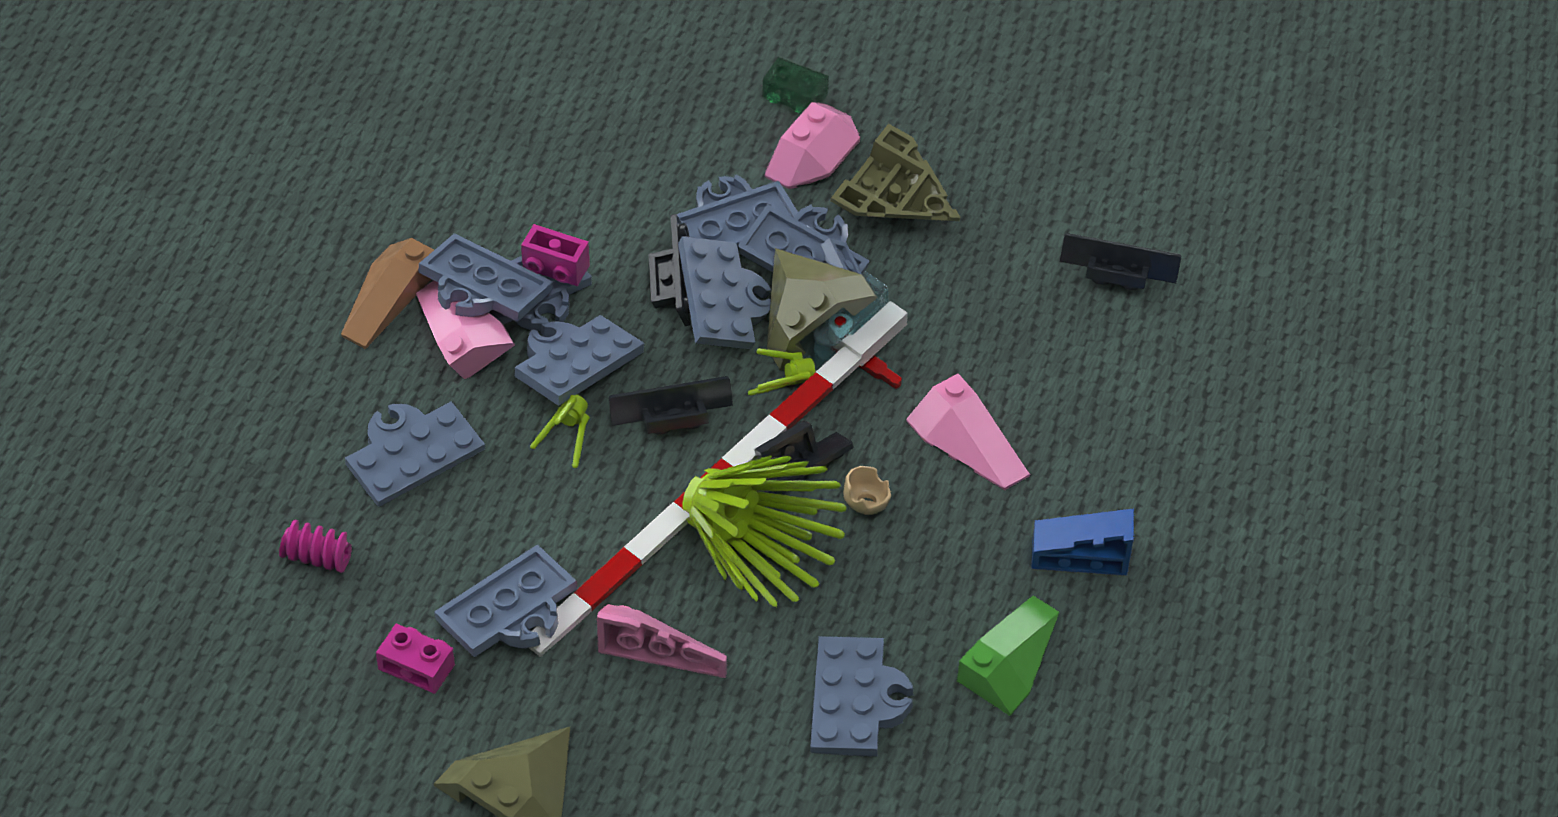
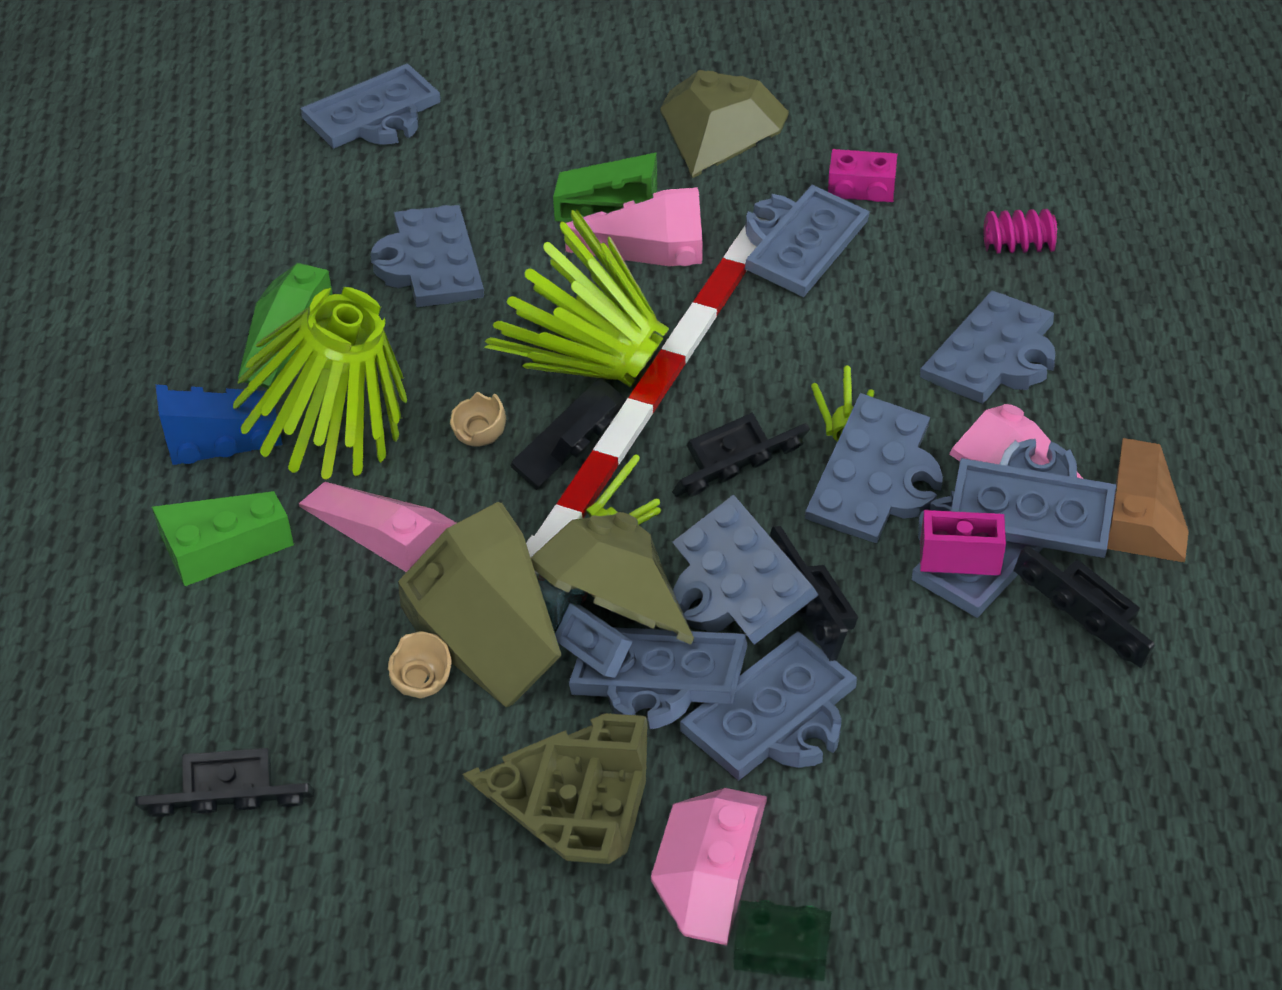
camera: 165 degrees right, 5 degrees down
(484, 220) = (1089, 601): none -> black bracket
(666, 699) = (605, 186): none -> bright green wedge
(908, 293) = (484, 603): none -> olive wedge
(969, 305) = (416, 658): none -> tan hair
(975, 468) = (340, 343): none -> lime plant
(1096, 445) = (222, 533): none -> bright green wedge

